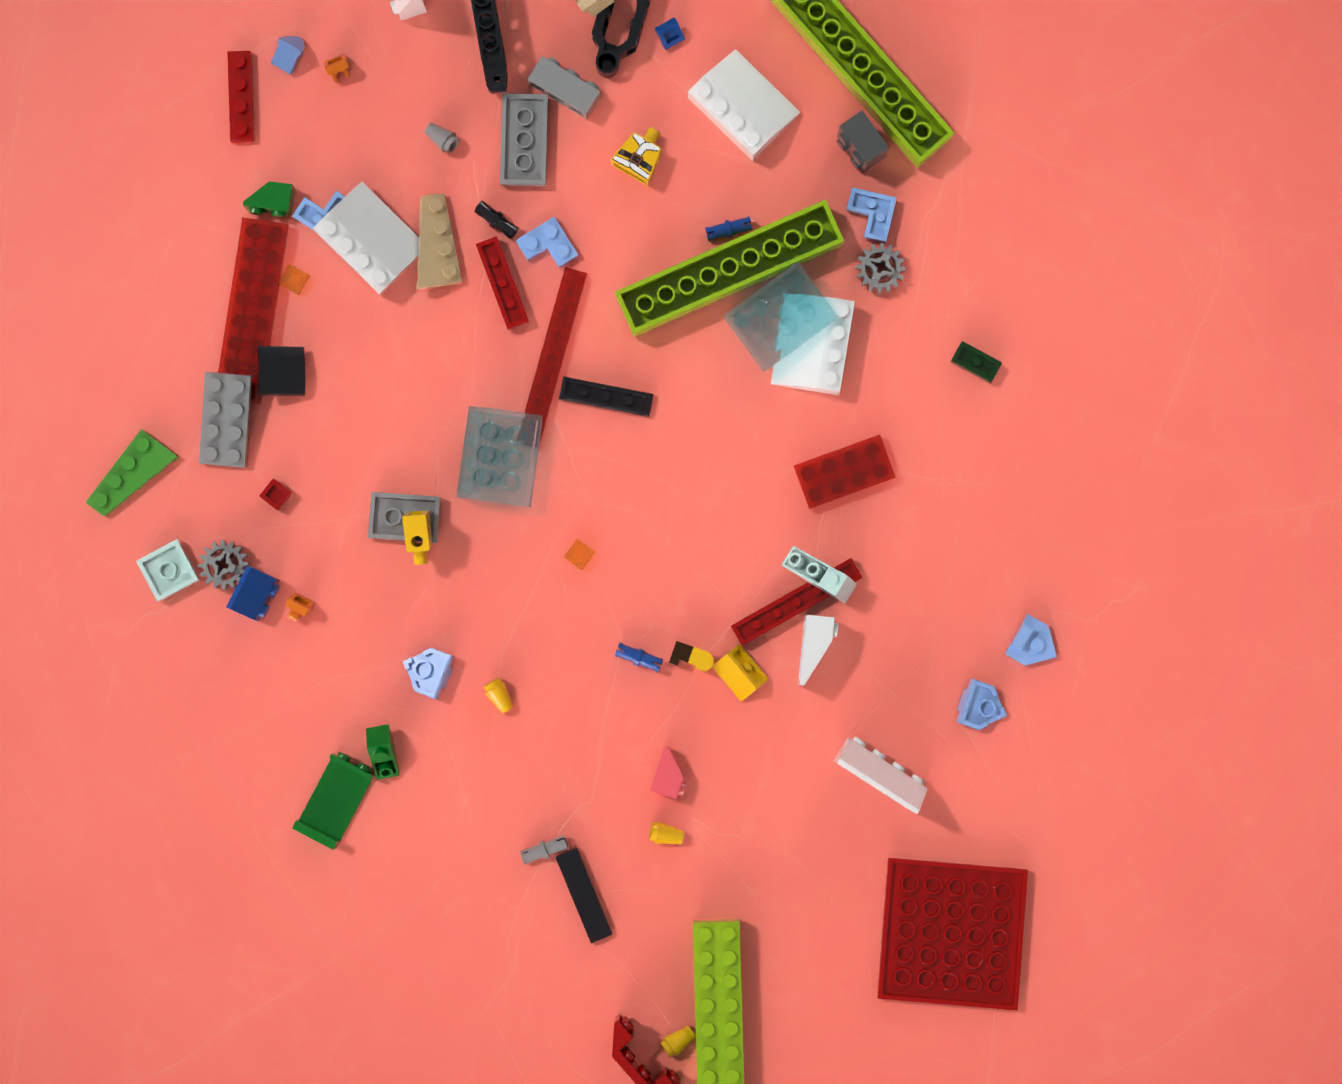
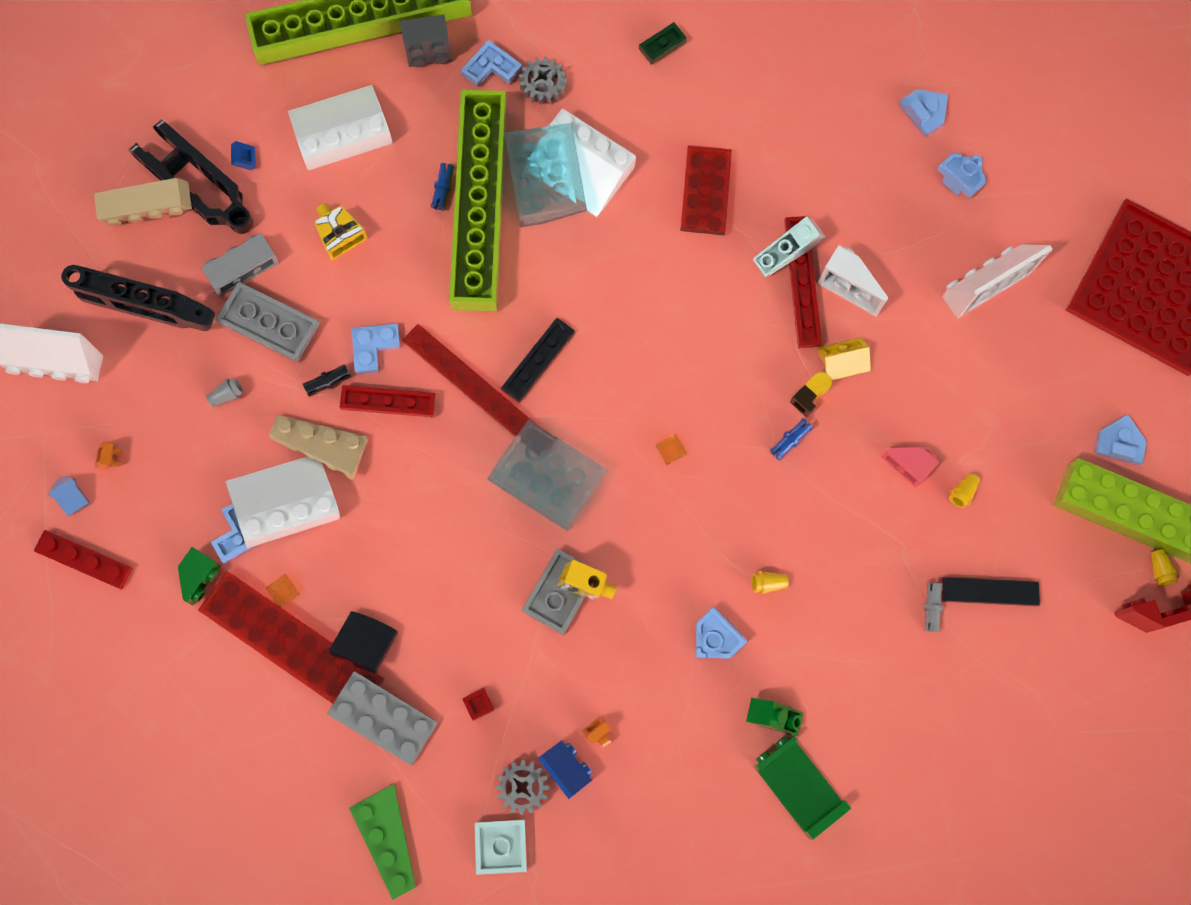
camera: 75 degrees left, 10 degrees down
(782, 959) = (1121, 442): none -> light blue plate

